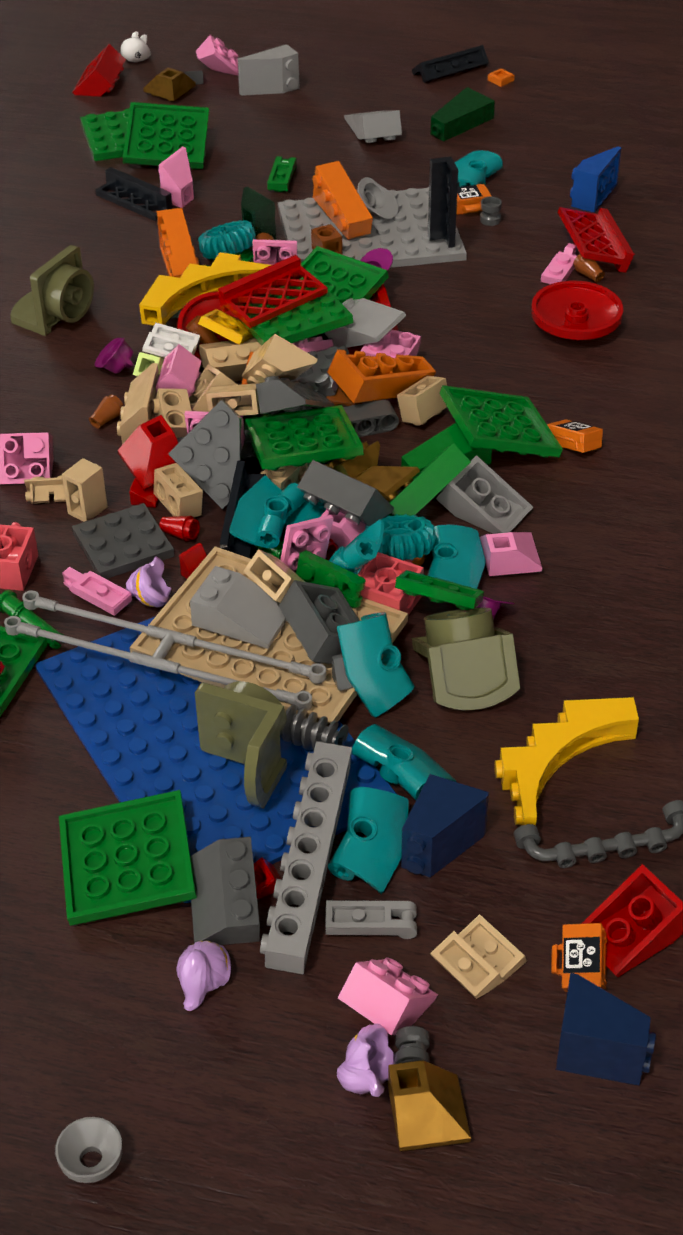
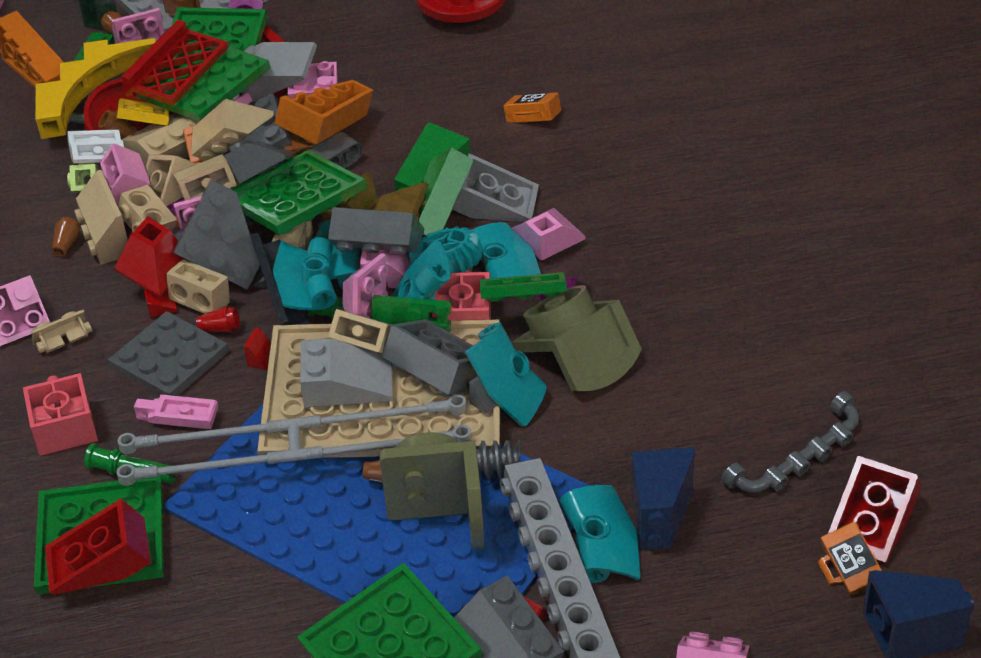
camera: 25 degrees left, 0 degrees up
(84, 490) = (103, 319): tan brick -> none
(115, 356) = (36, 179): magenta piece -> none
(148, 584) = (228, 387): lavender hair -> none
(227, 238) = (75, 29): teal gear -> none
(371, 918) = (648, 605): light grey plate -> none
(400, 759) = (582, 456): teal panel -> none
(422, 400) = (376, 120): tan brick -> none
(478, 957) = (762, 597): tan slope -> none
(500, 422) = (463, 116): green plate -> none
(551, 745) = (712, 366): yellow arch -> none

